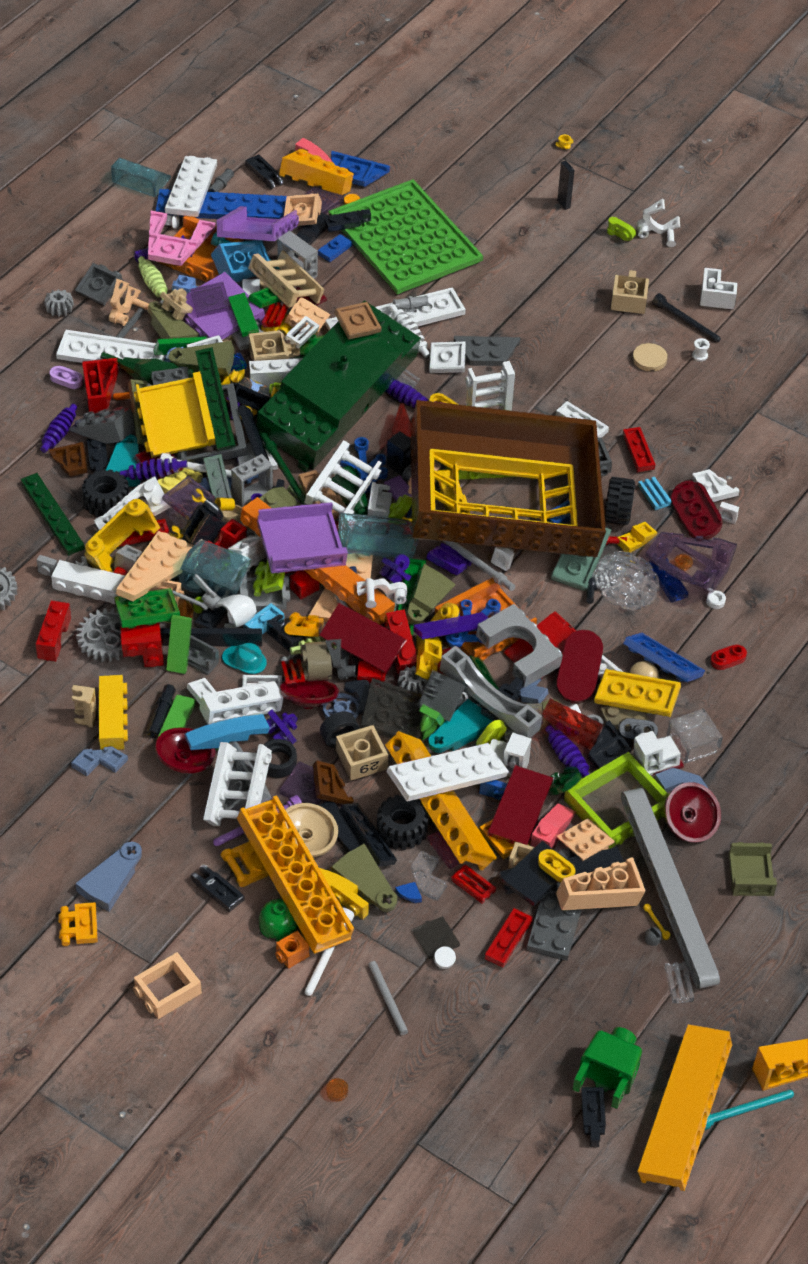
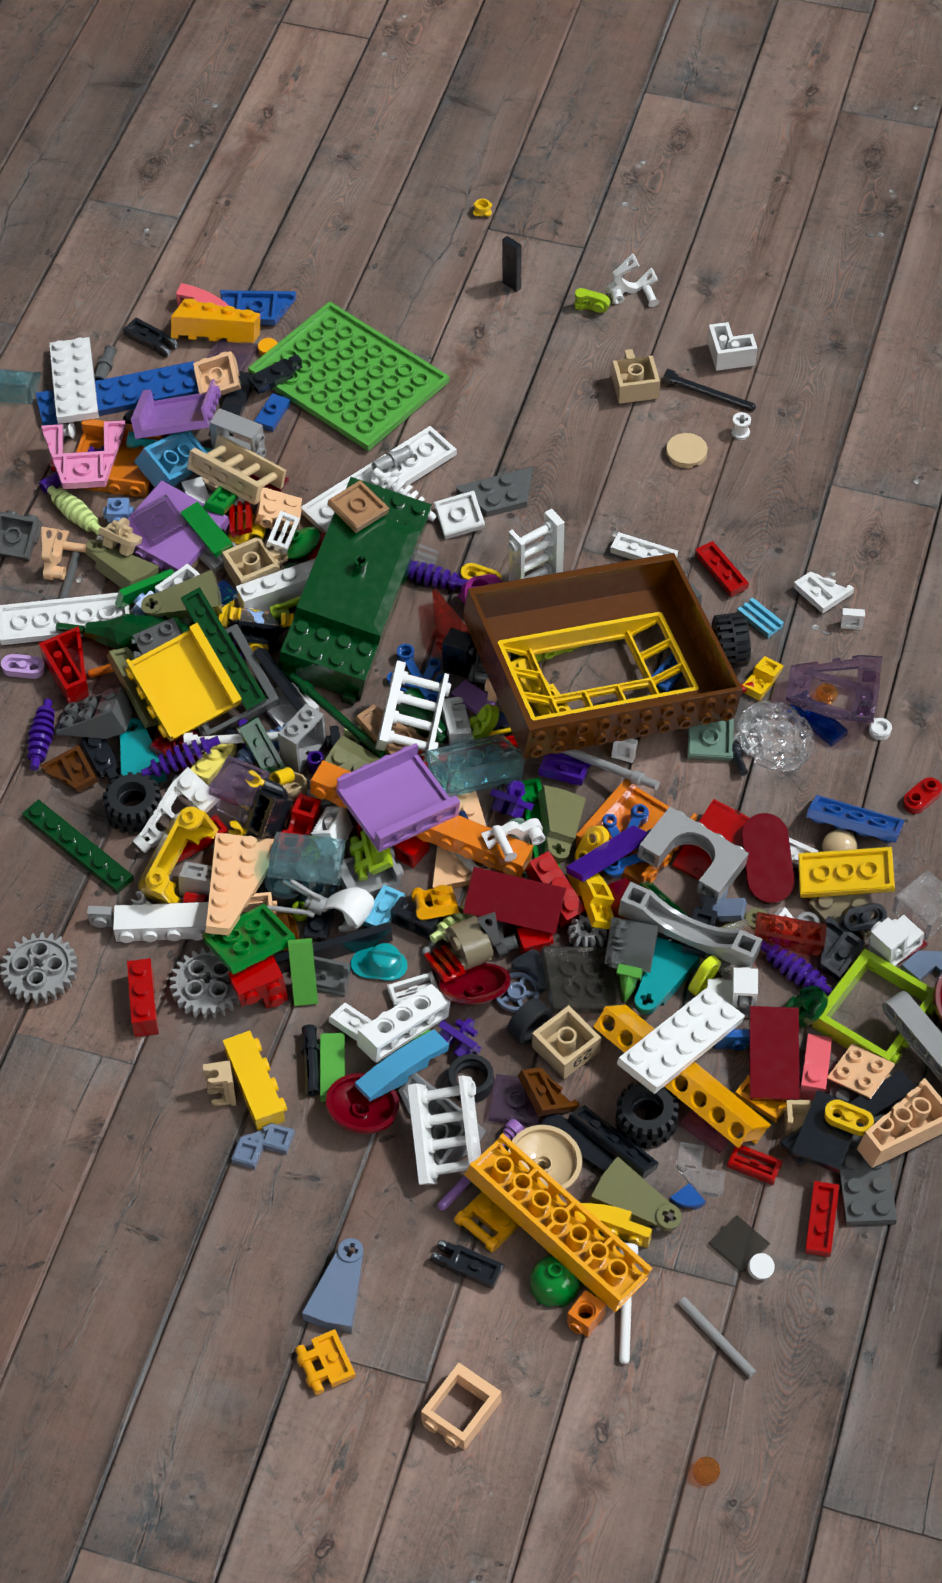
camera: 15 degrees left, 5 degrees up
(696, 510) = (816, 625): dark red tile -> none

